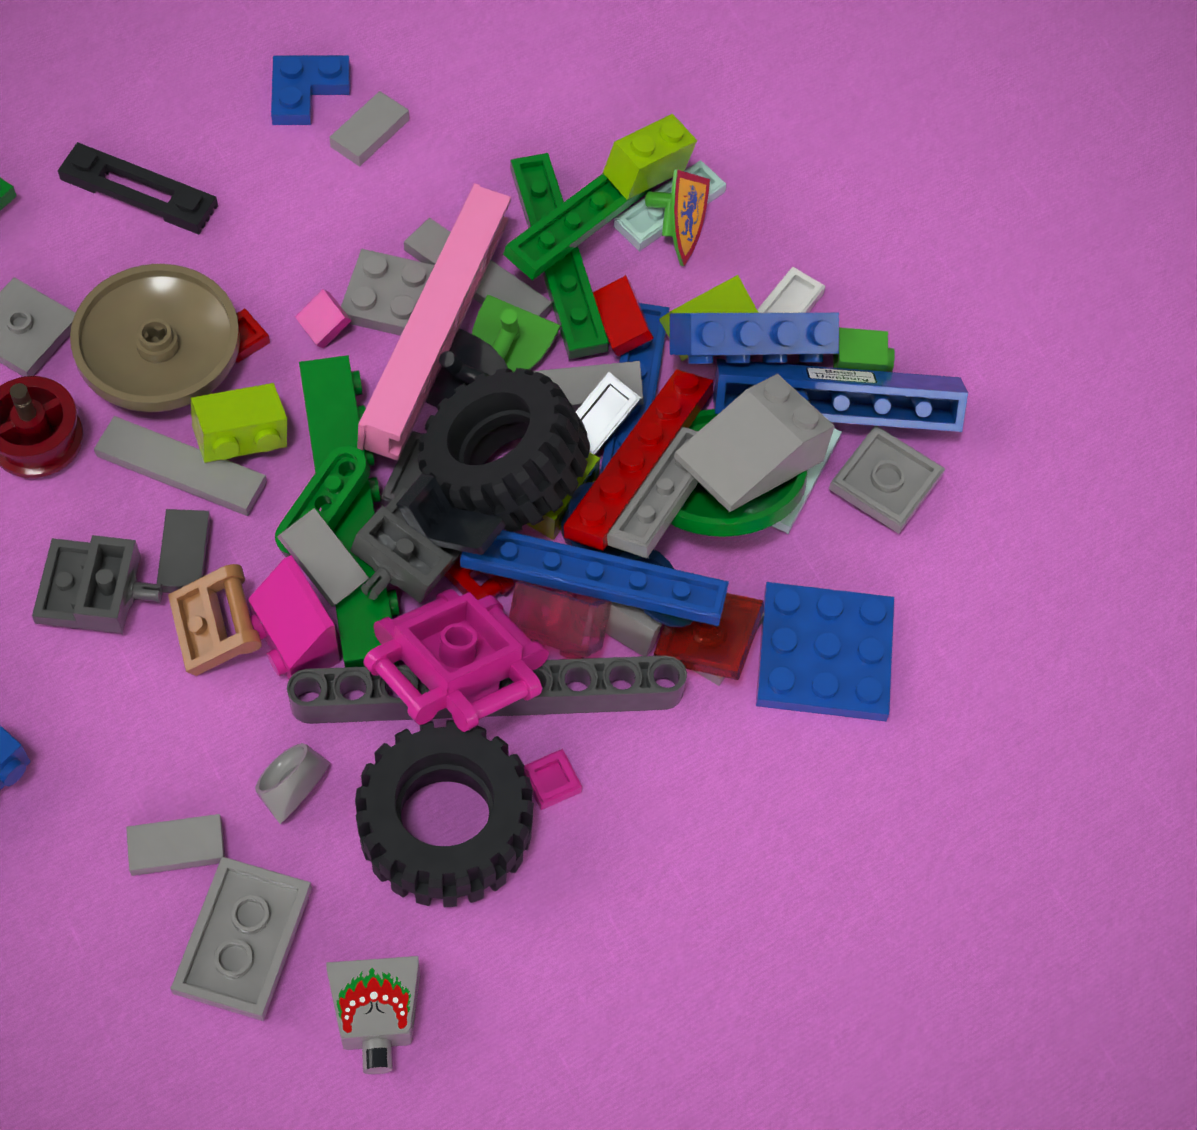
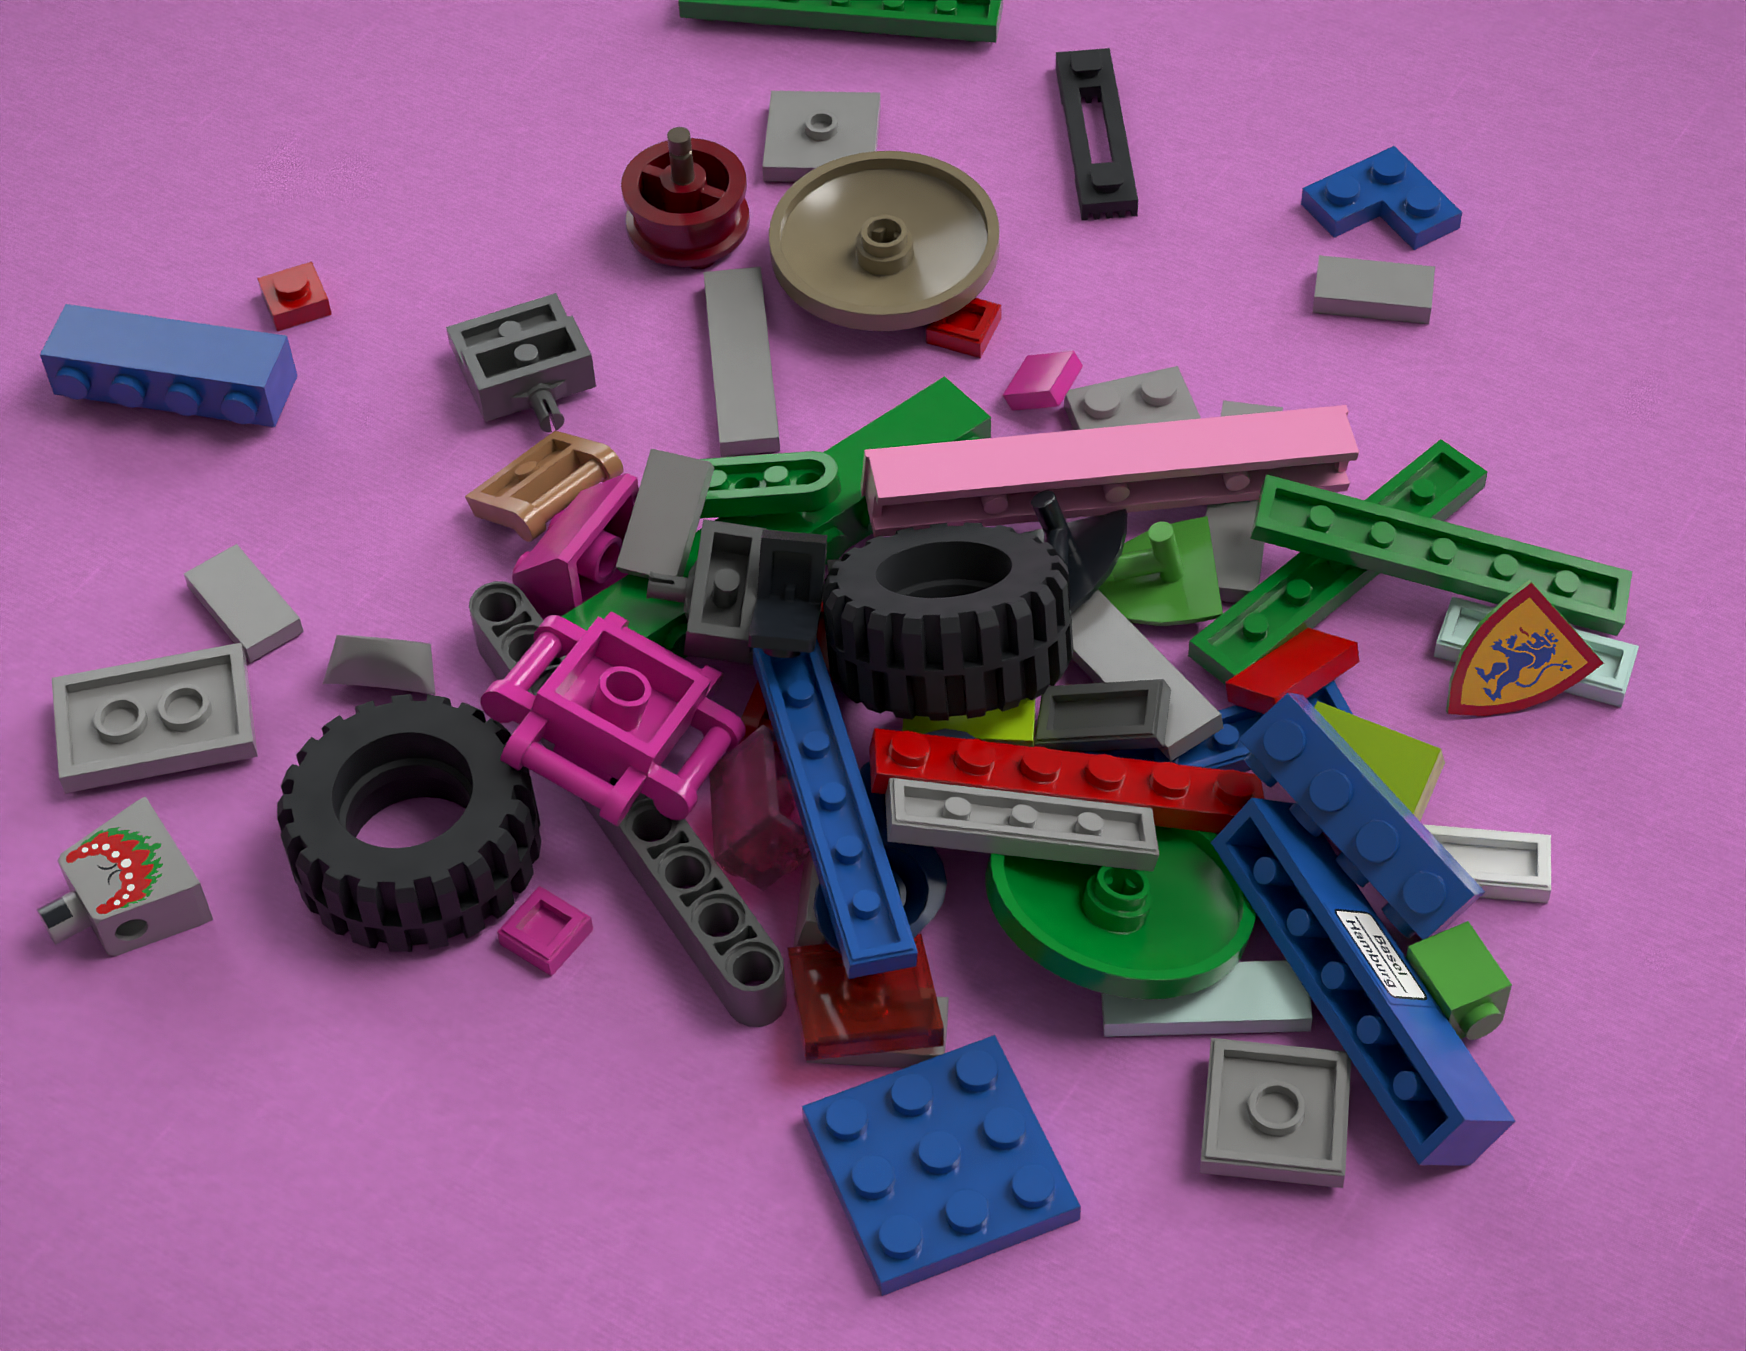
camera: 70 degrees right, 10 degrees down
(183, 548) = (633, 416): dark grey tile -> none
(239, 422) = (824, 371): lime brick -> none
(649, 156) = (1564, 557): lime brick -> none
(757, 443) = (1159, 885): light grey slope -> none

